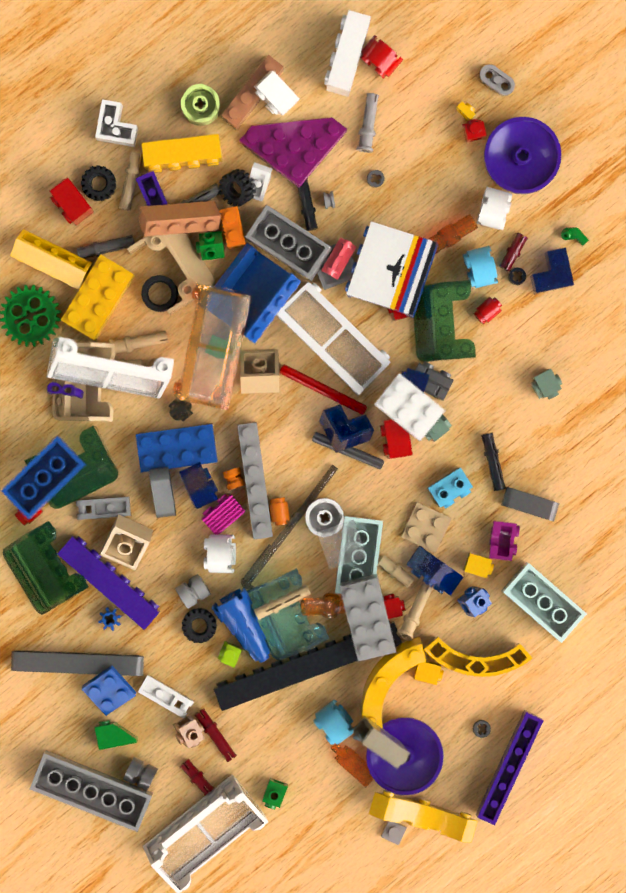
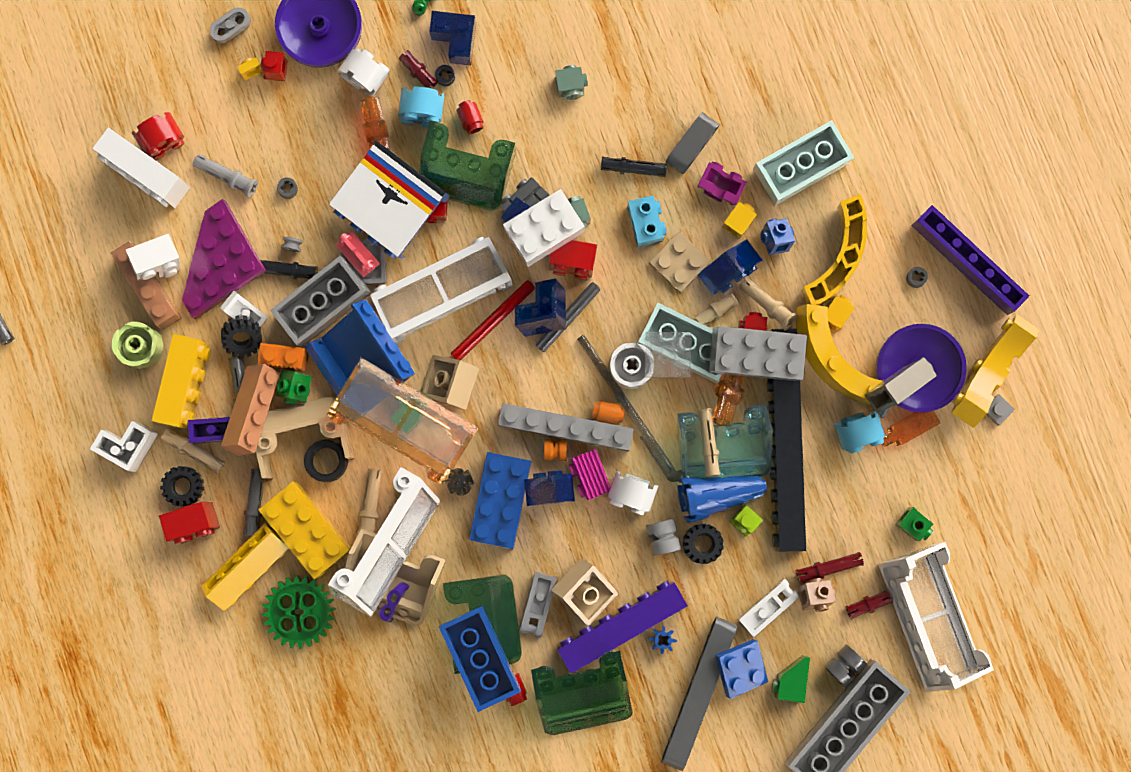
camera: 65 degrees left, 5 degrees down
(162, 492) = (543, 532): beam -> none

